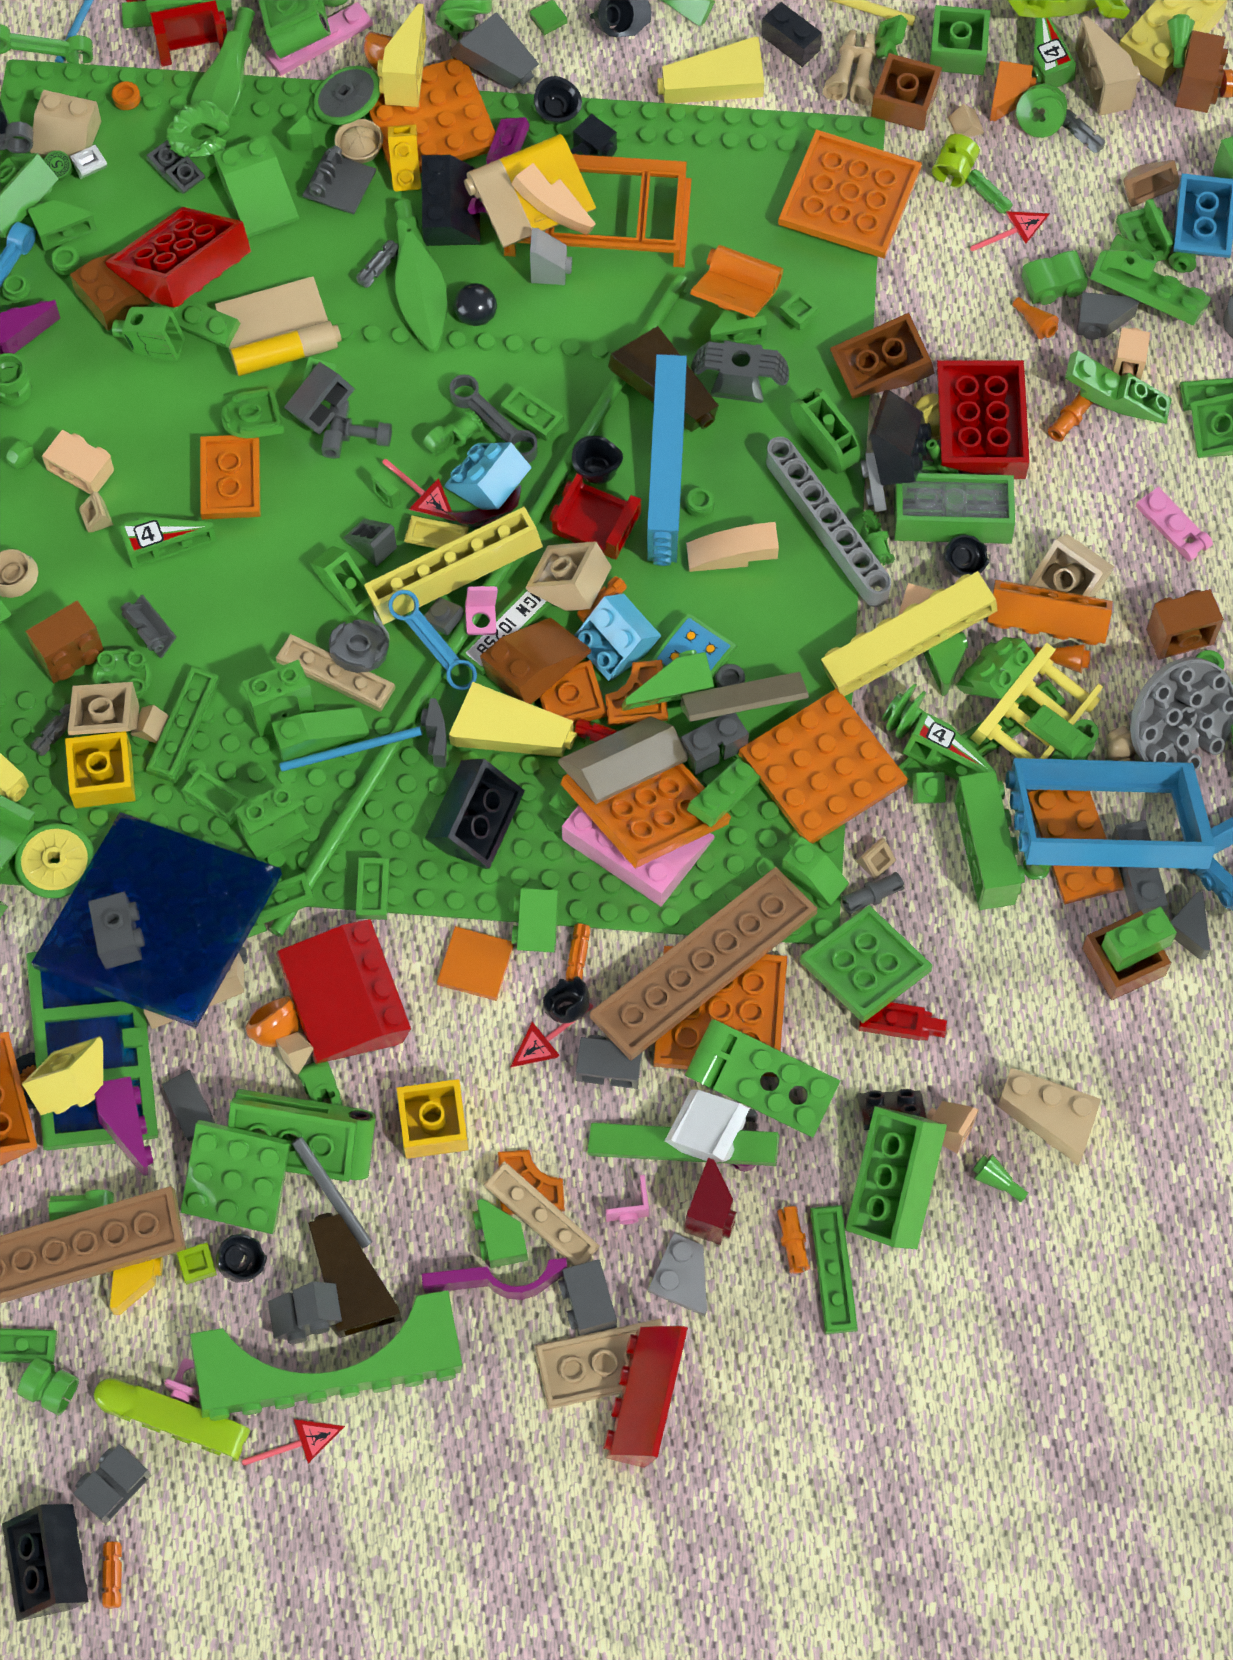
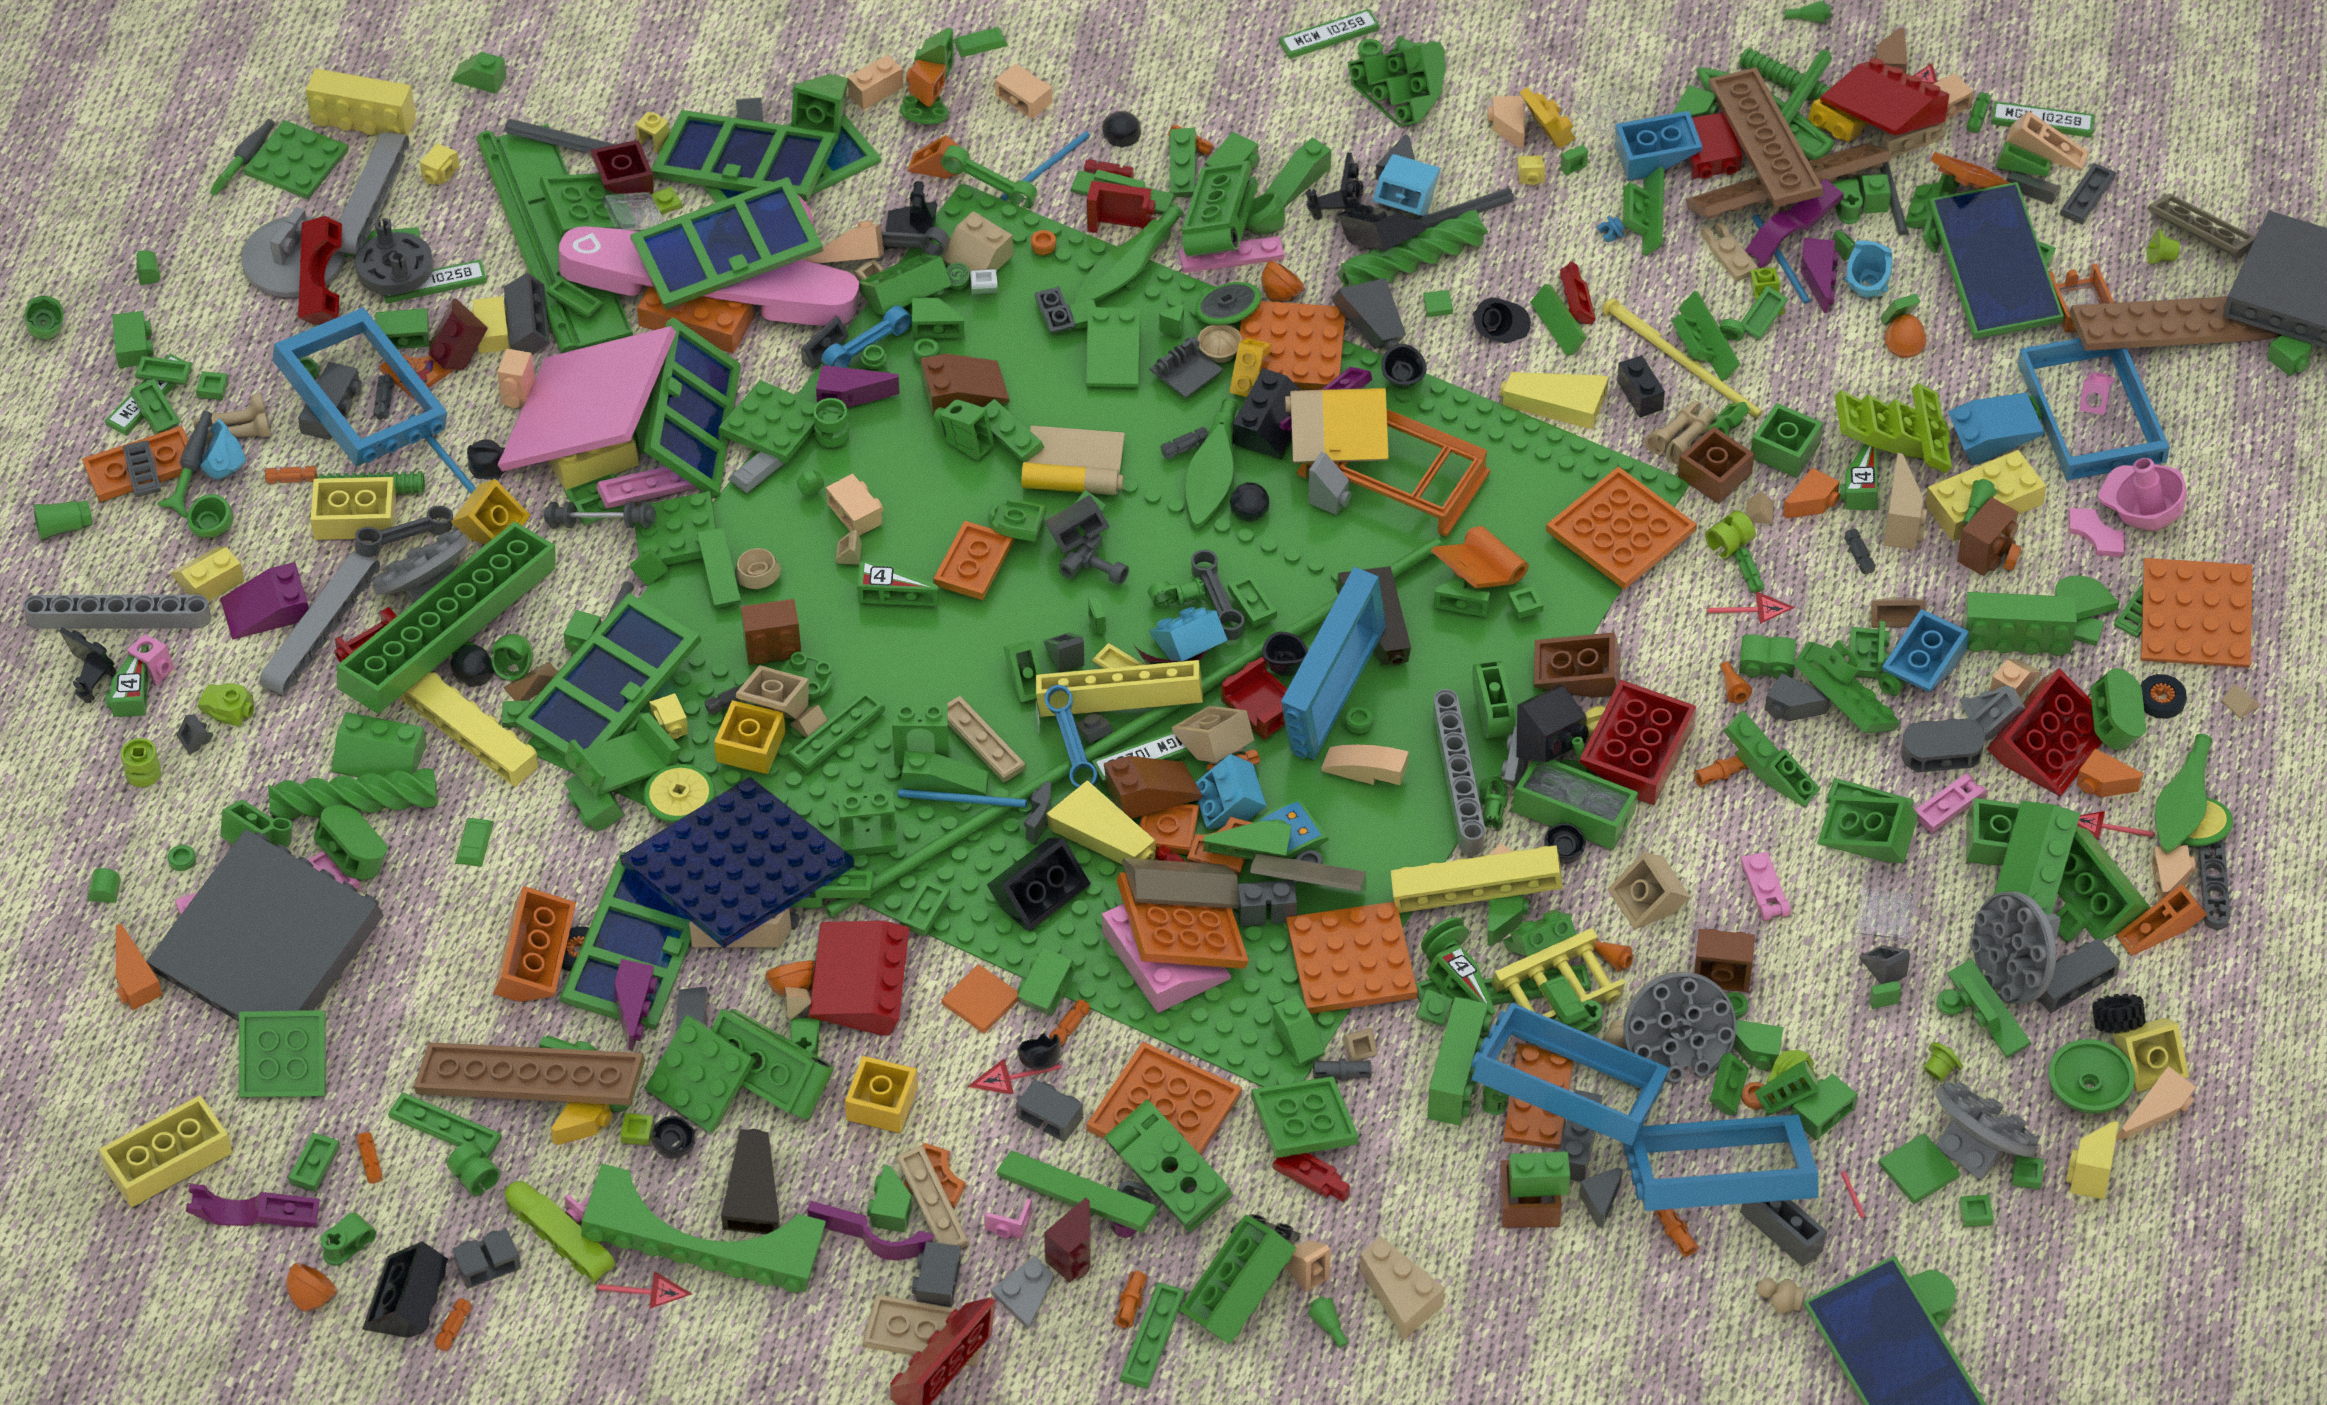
camera: 25 degrees right, 15 degrees down
(67, 1077) = (602, 947): light yellow slope -> none
(115, 930) = (697, 851): dark grey brick -> none
(149, 625) = (847, 646): dark grey hinge -> none
(181, 255) = (1021, 377): red slope -> none
(186, 120) = (1072, 283): bright green piece -> none
(213, 795) = (827, 787): bright green tile -> none
(310, 1312) = (702, 1190): dark grey piece -> none
(331, 1192) = (770, 1114): dark grey bar -> none
(358, 646) = (1010, 724): dark grey tile -> none
(404, 61) = (1286, 289): light yellow slope -> none
(432, 500) = (1134, 636): piece -> none
(481, 601) = (1128, 724): bright pink bracket -> none
(552, 200) = (1349, 435): light nougat slope -> none
(594, 138) = (1421, 407): black brick -> none
(703, 963) = (1166, 1062): medium nougat plate -> none
(707, 1126) = (1100, 1180): white slope -> none
(724, 792) = (1253, 941): bright green plate -> none
(740, 369) = (1441, 622): dark grey piece -> none
(1050, 99) = (1829, 520): bright green piece -> none
(1051, 612) = (1613, 911): orange brick -> none
(1131, 352) = (1796, 734): light nougat brick -> none

